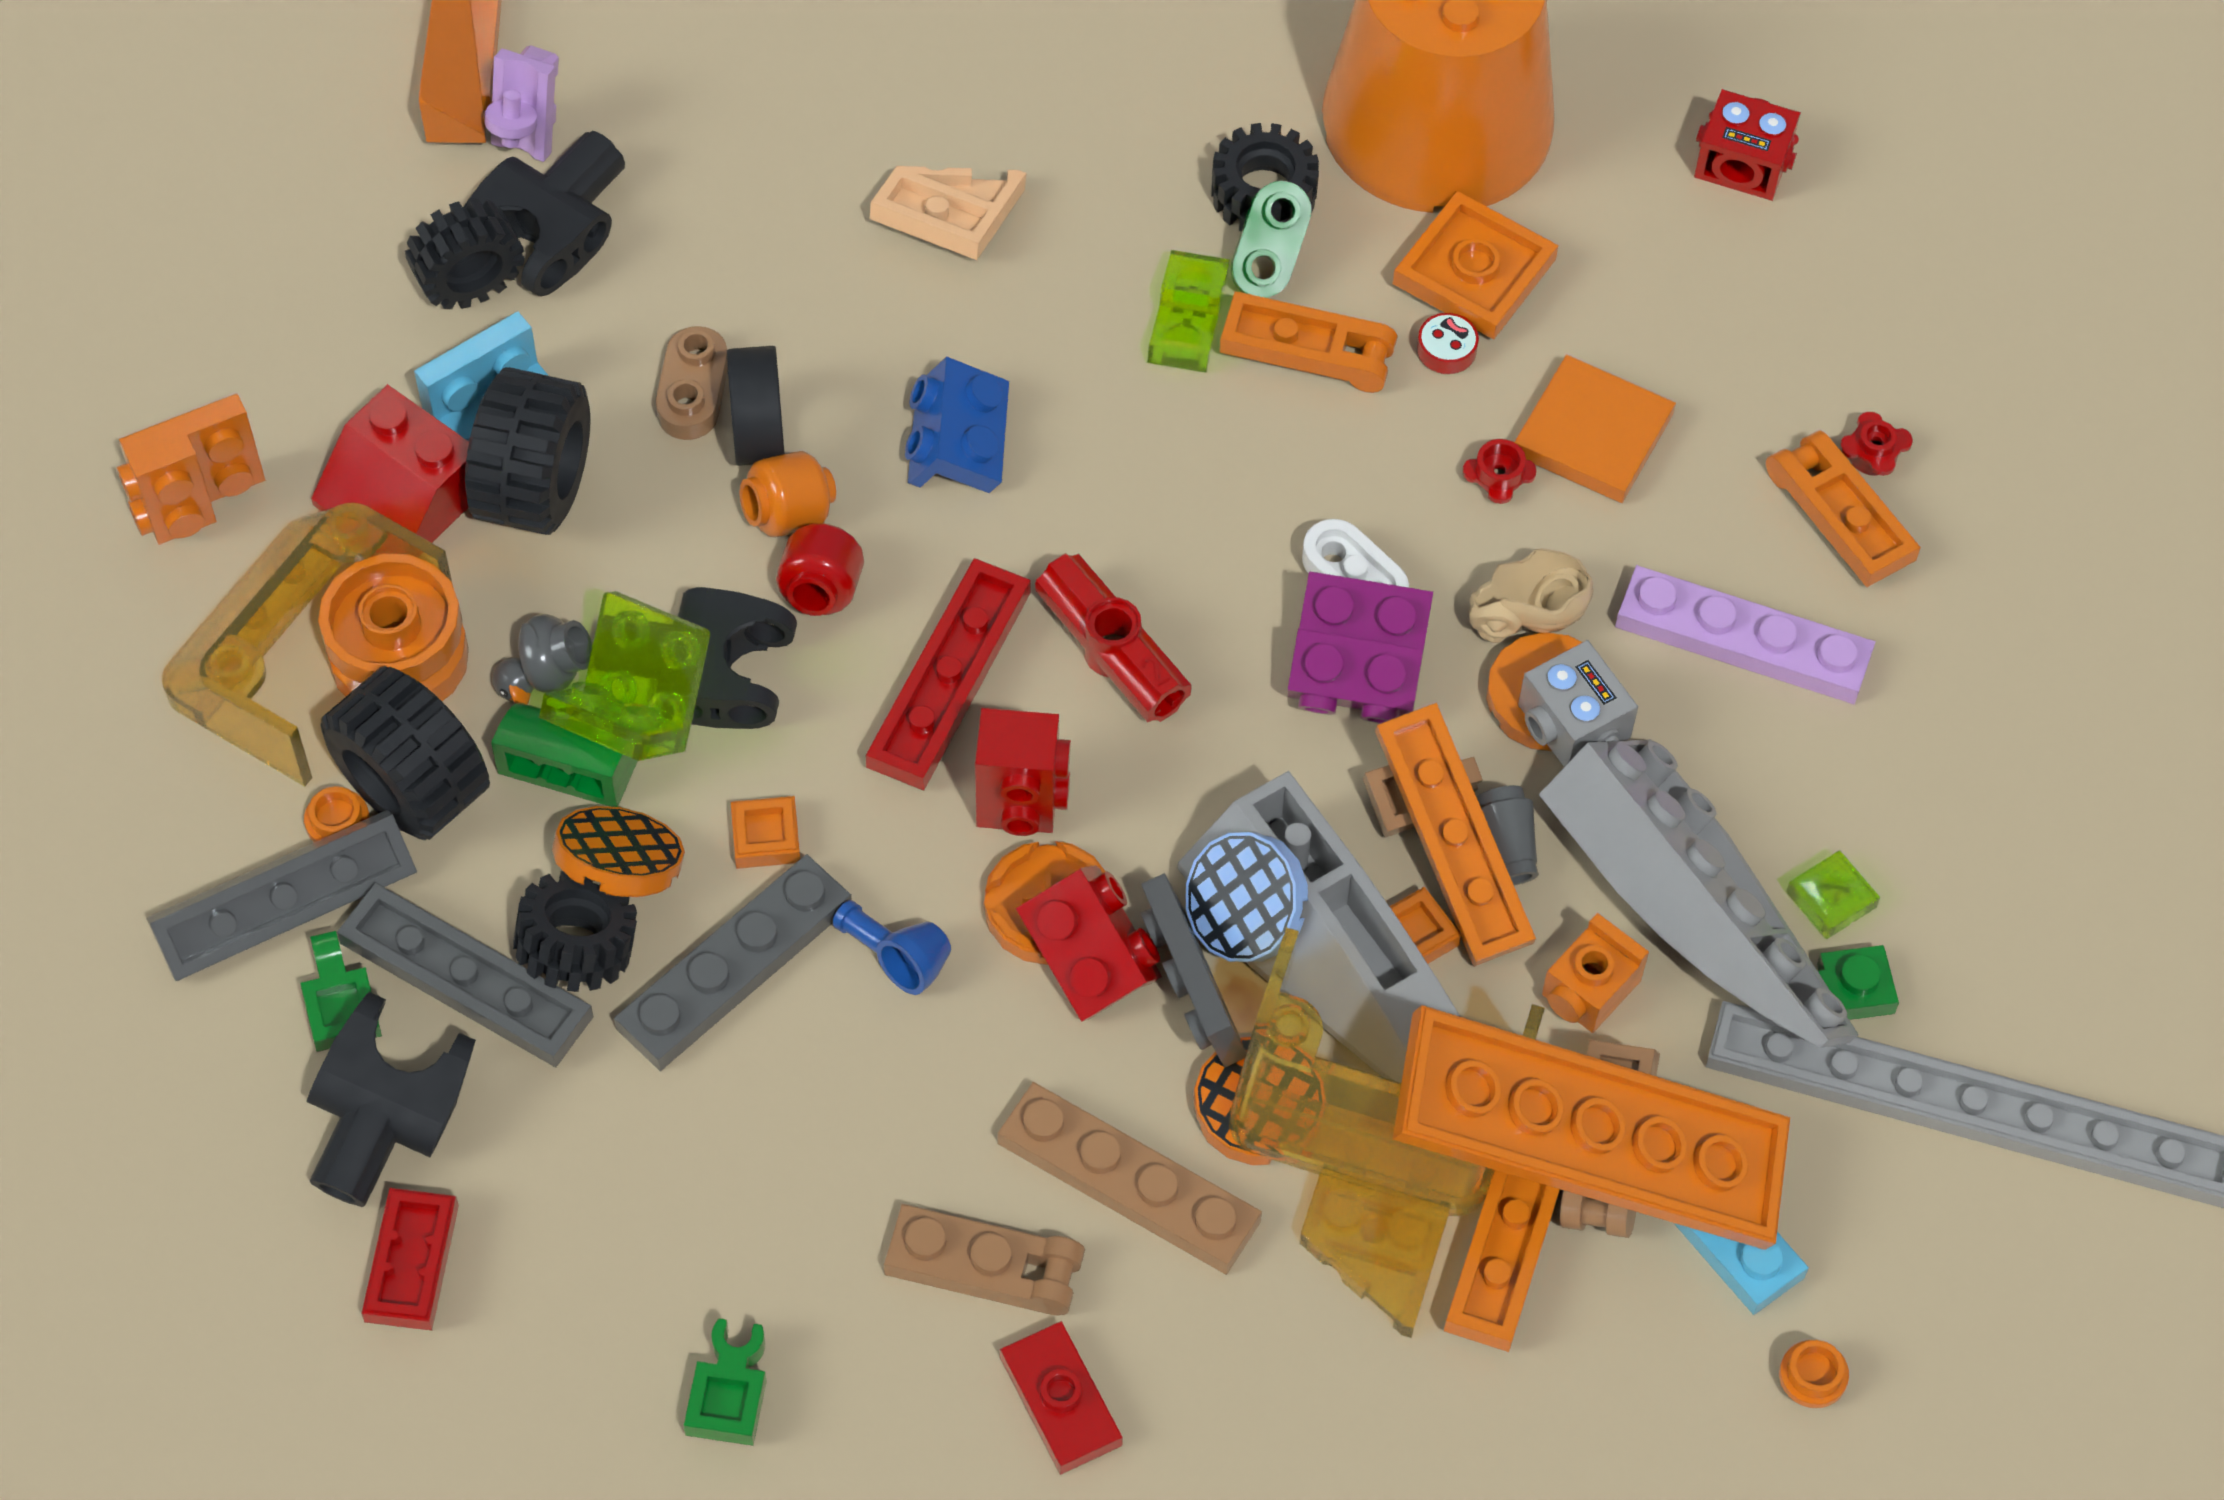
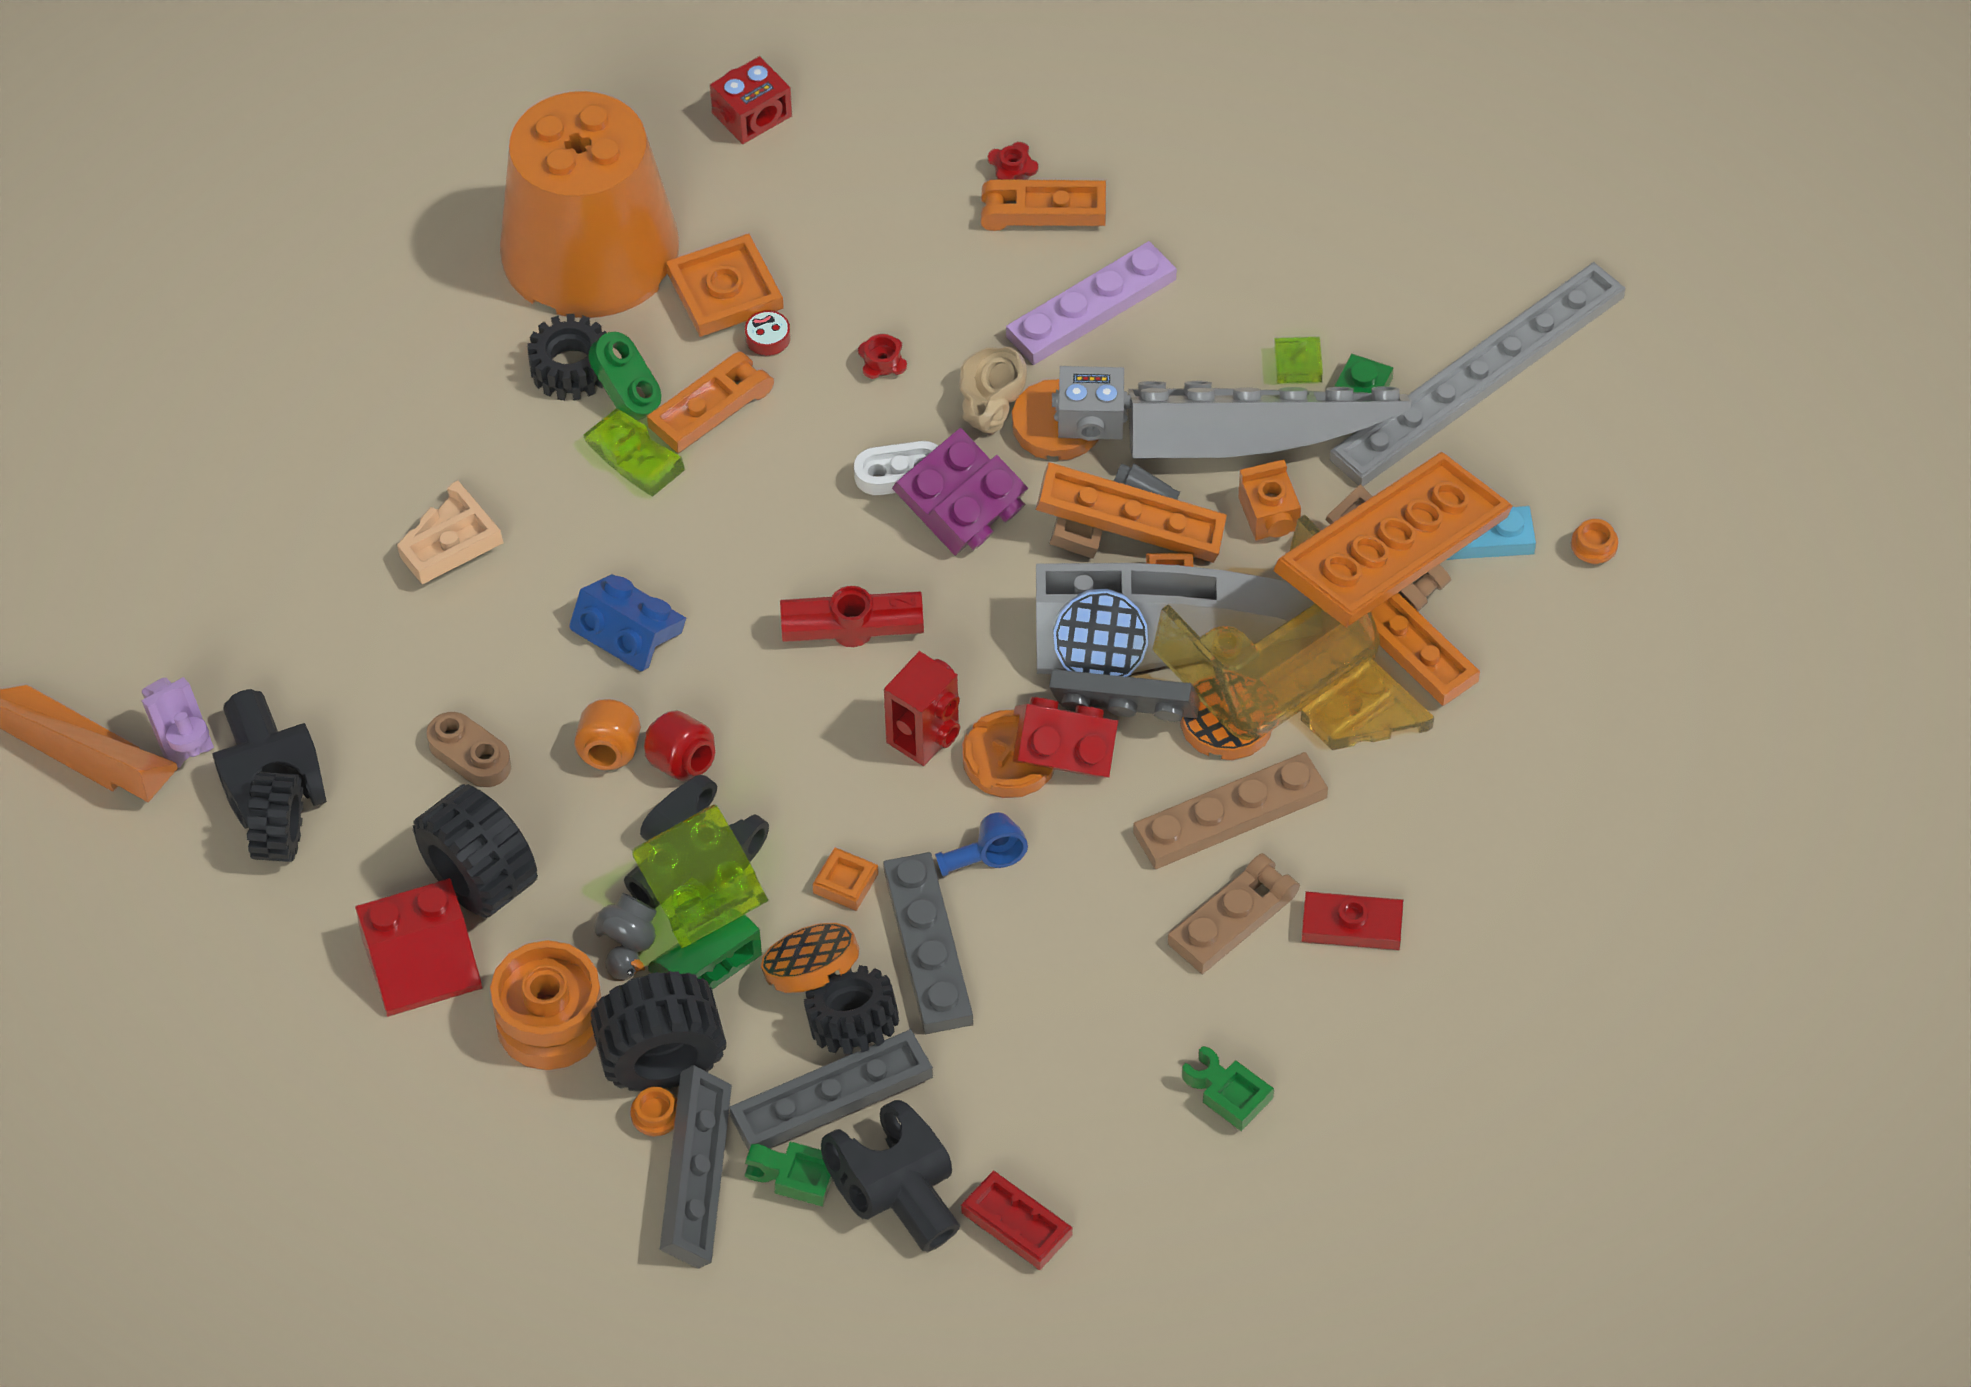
camera: 55 degrees left, 5 degrees down
(186, 465) = (325, 1060): orange plate -> none
(224, 660) = (485, 1116): clear yellow windscreen -> none
(458, 379) = (386, 853): medium azure bracket -> none
(755, 403) = (533, 711): black tyre -> none
(948, 674) = (809, 718): red plate -> none
(1594, 428) = (889, 293): orange tile -> none

